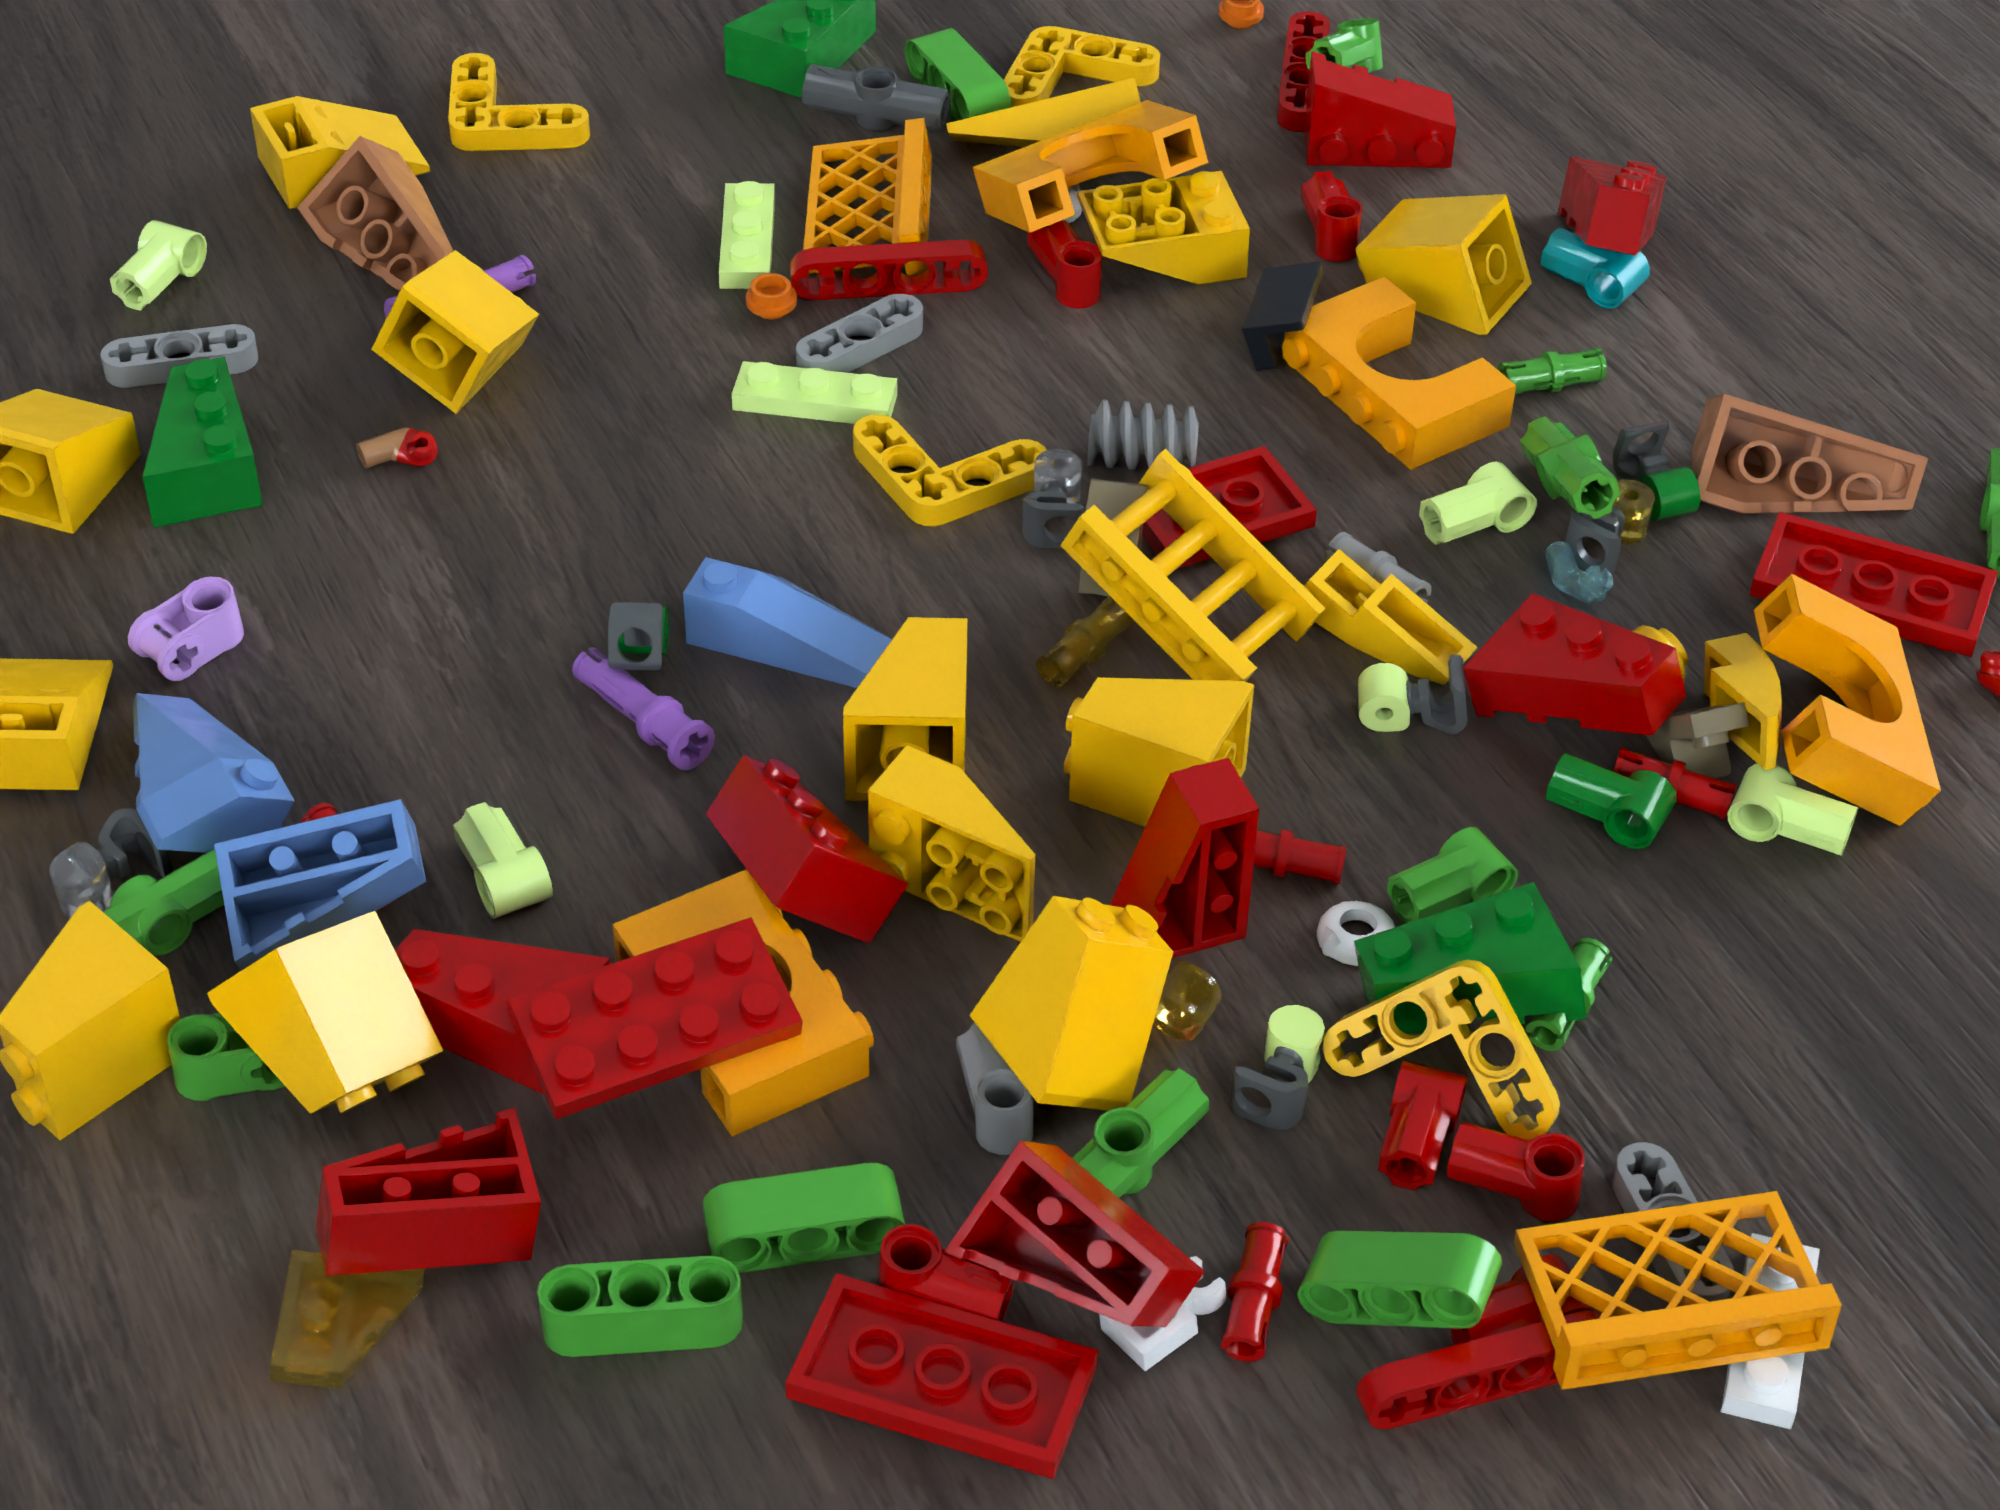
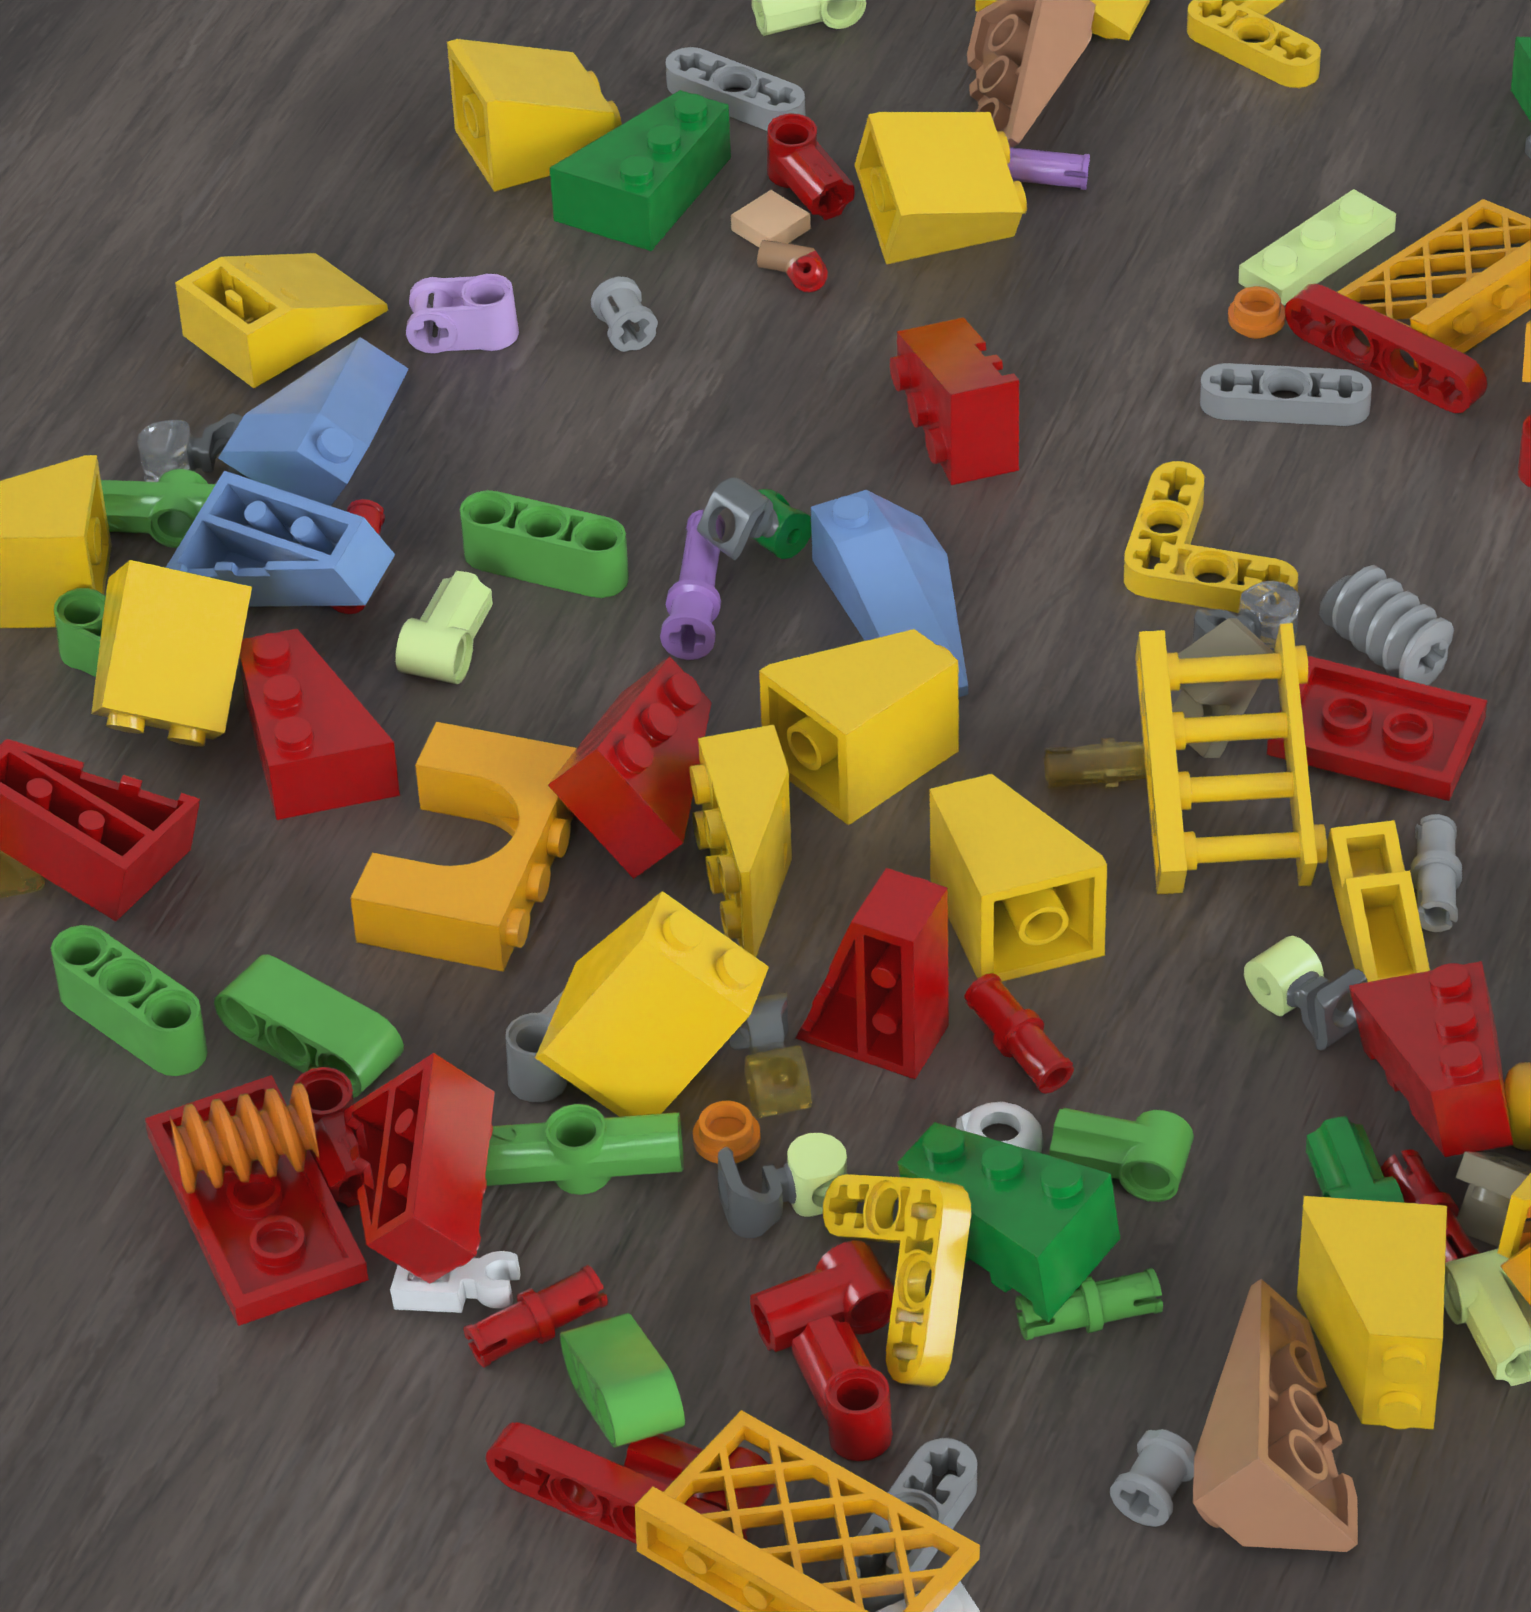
camera: 50 degrees right, 0 degrees up
(304, 375) = (802, 165): none -> red piece
(321, 555) = (628, 299): none -> light grey bush
(335, 431) = (770, 219): none -> light nougat tile
(491, 751) = (544, 544): none -> bright green beam
(653, 1017) = (359, 801): red plate -> none
(662, 463) = (959, 399): none -> red wedge
(812, 393) = (1183, 420): yellowish green plate -> none
(917, 1324) = (244, 1137): none -> orange piece
(1199, 1057) = (729, 1126): none -> orange plate
(1758, 852) = (1377, 1302): none -> yellow slope
(1767, 1069) = (1148, 1487): none -> light grey bush
(1802, 1001) = (1267, 1444): none -> nougat wedge

